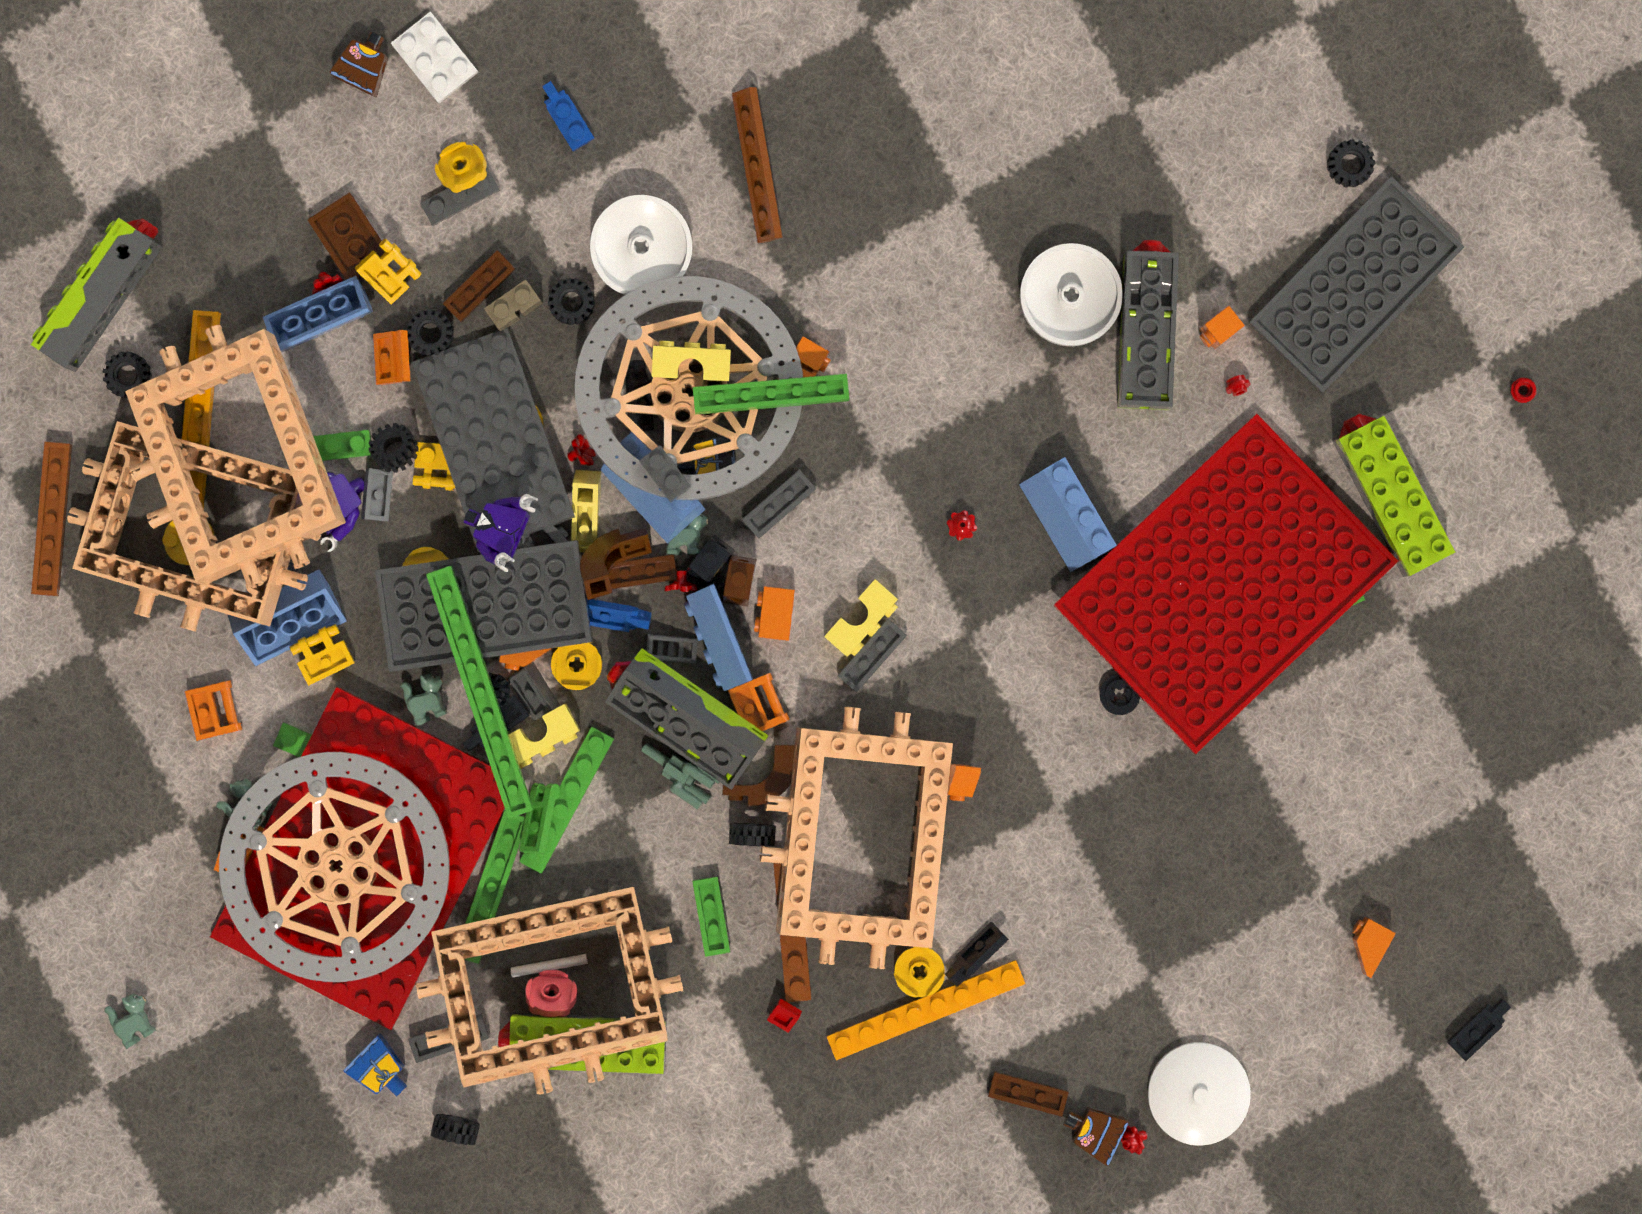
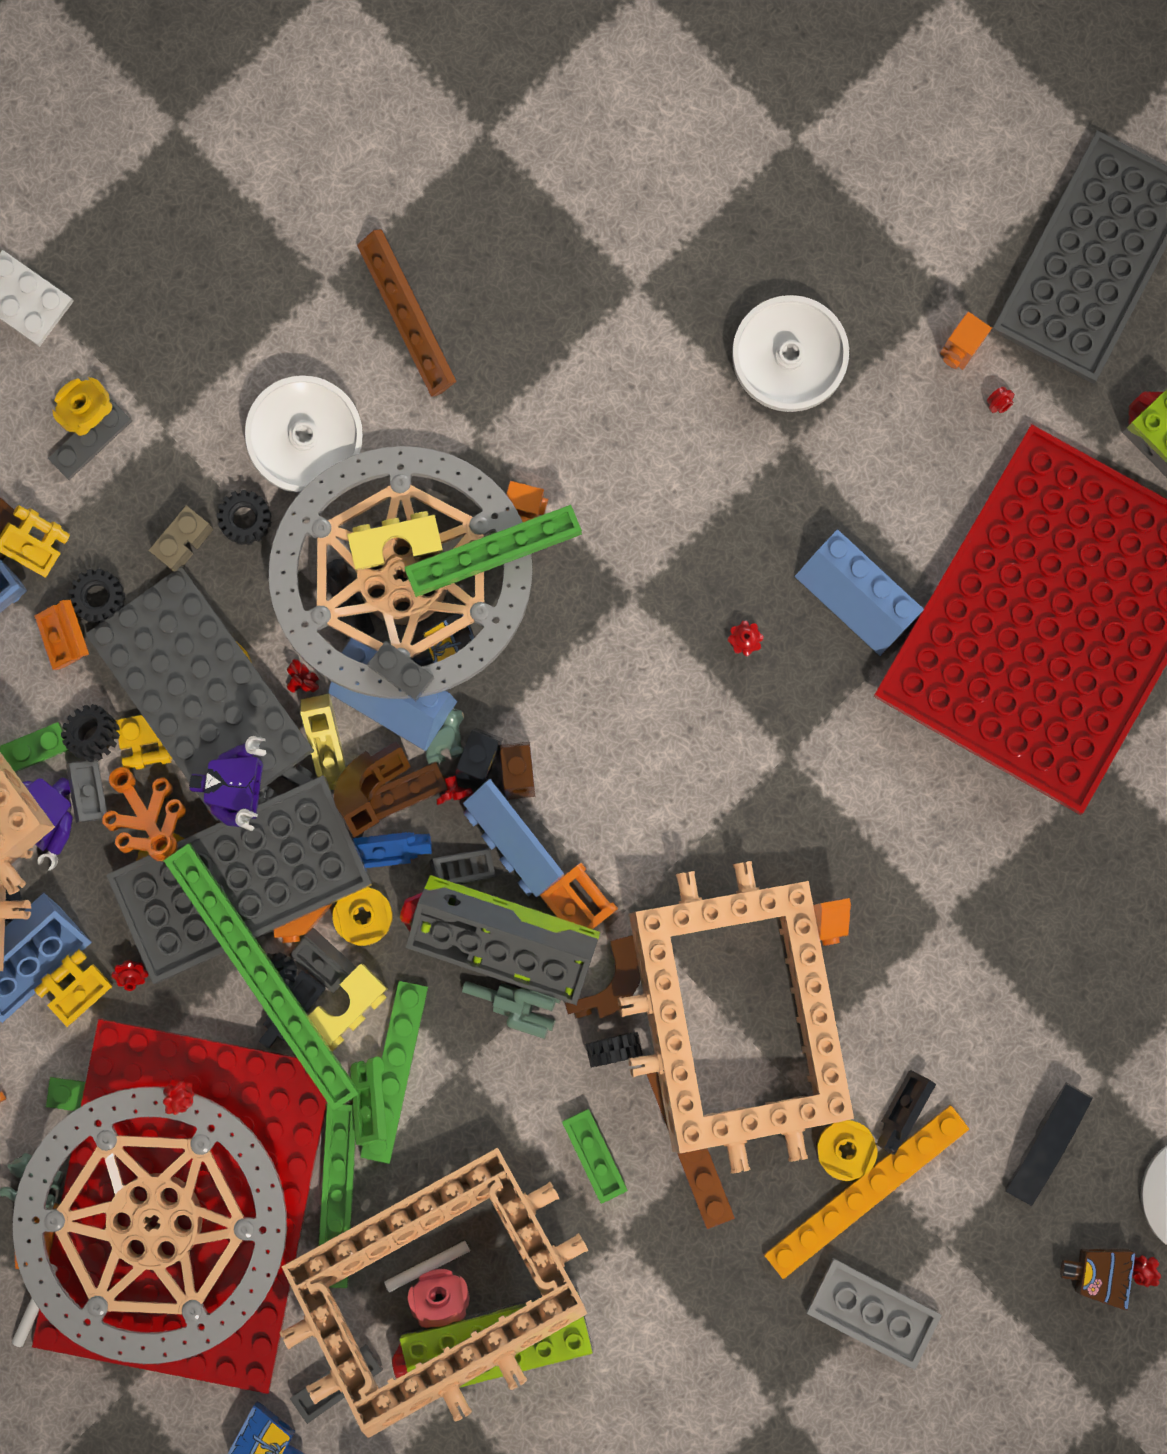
camera: 15 degrees left, 5 degrees down
(211, 915) = (27, 1321): none -> white bar
(371, 657) = (129, 974): none -> red plant
(386, 772) = (178, 1098): none -> red plant
(420, 532) = (145, 819): none -> orange plant
(424, 702) = (208, 1004): sand green animal -> none
(479, 286) = (137, 530): reddish brown plate -> none
(567, 117) = (184, 321): blue hinge -> none
(775, 613) = (568, 794): orange piece -> none
(779, 504) = (537, 673): dark grey plate -> none
(784, 1015) = (709, 1245): red plate -> none
(849, 637) = (679, 750): light yellow arch -> none
(872, 655) = (689, 810): dark grey plate -> none
(901, 1109) = (873, 1313): none -> light grey plate
(1028, 1093) = (1010, 1253): reddish brown plate -> none
(1086, 1014) = (1049, 1143): none -> black slope
(1107, 696) = (980, 787): black gear -> none
(1148, 327) = (886, 364): dark grey piece -> none
(1363, 154) = (1060, 118): black tyre -> none

